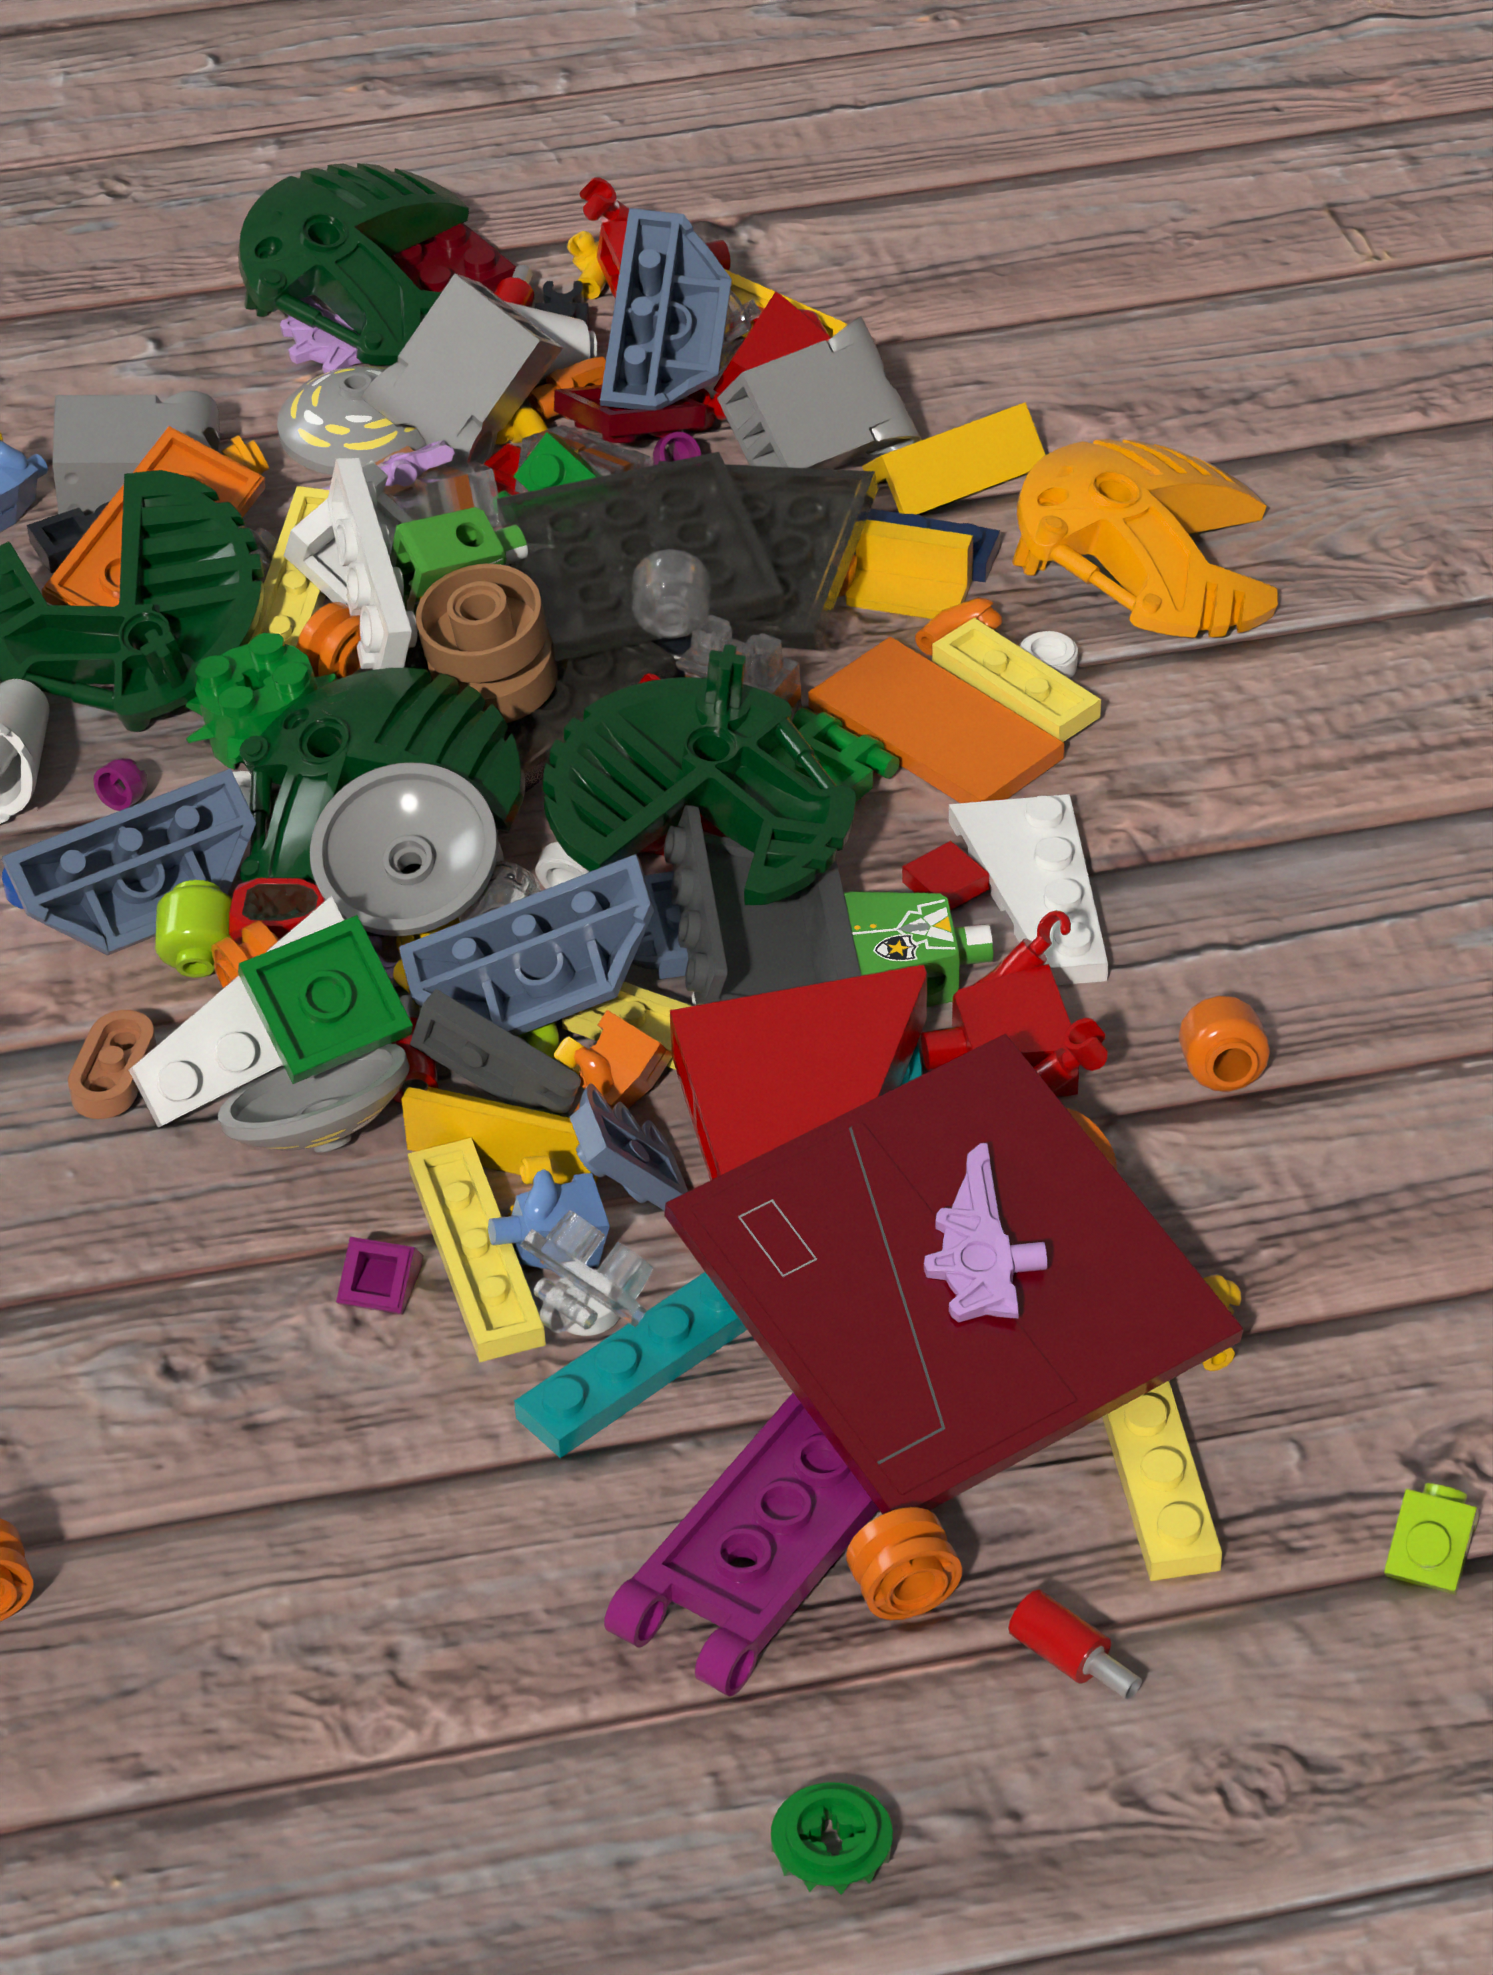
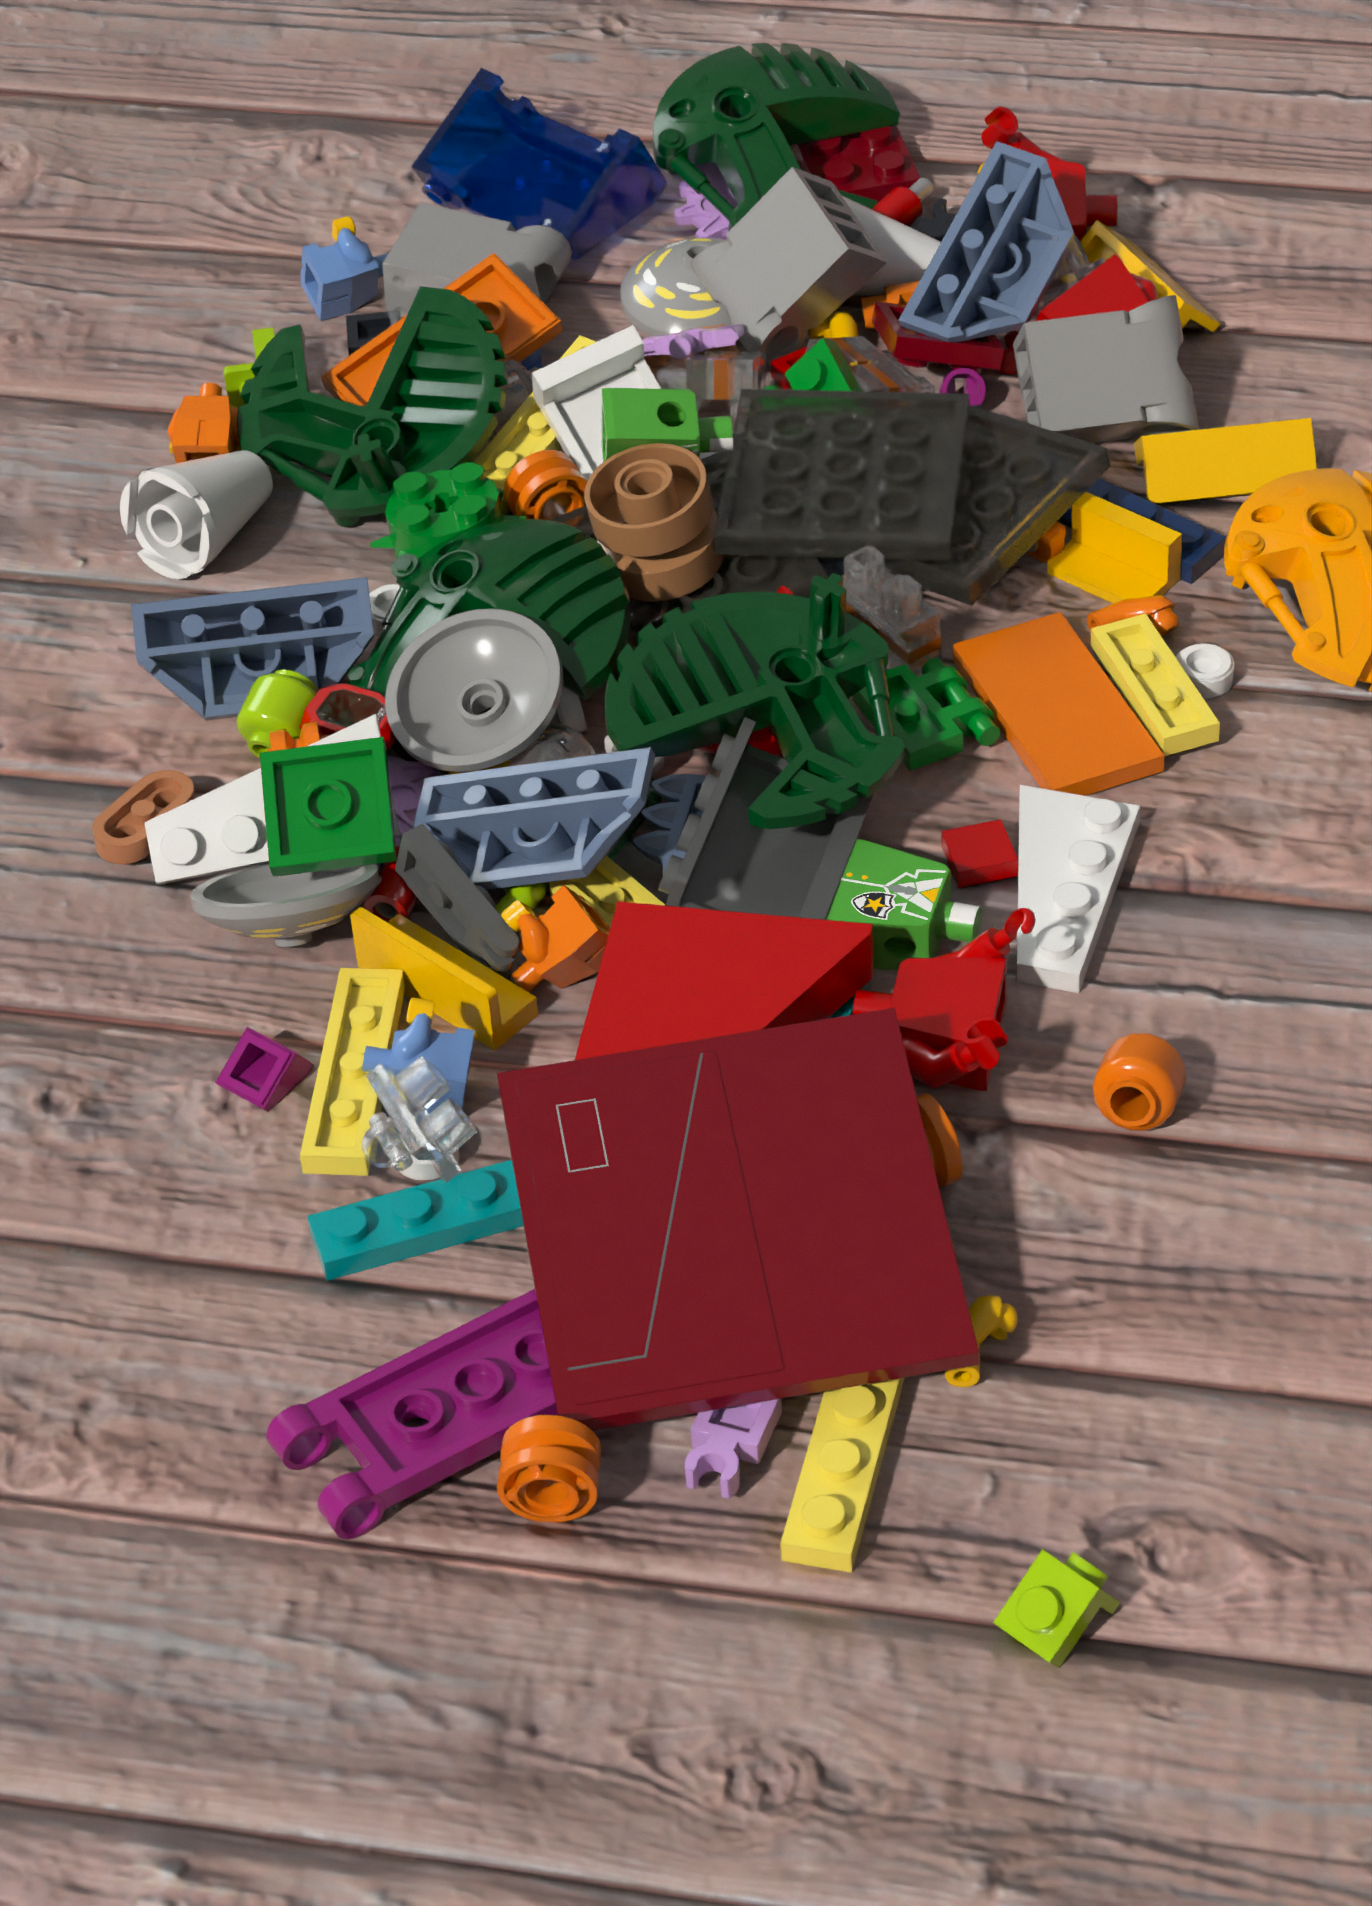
camera: 25 degrees right, 0 degrees up
(107, 786) = (297, 566): magenta hinge -> none
(137, 341) = (531, 170): none -> clear blue windscreen
(246, 455) = (570, 304): light orange plate -> none
(372, 583) = (582, 402): white wing -> none
(625, 1152) = (519, 1015): sand blue plate -> none
(671, 589) = (835, 512): clear head -> none
(859, 1822) = (335, 1672): green gear -> none
(976, 1251) = (756, 1201): lavender piece -> none
(1047, 1486) = (728, 1436): none -> lavender plate
(1069, 1643) = (662, 1590): red piece -> none

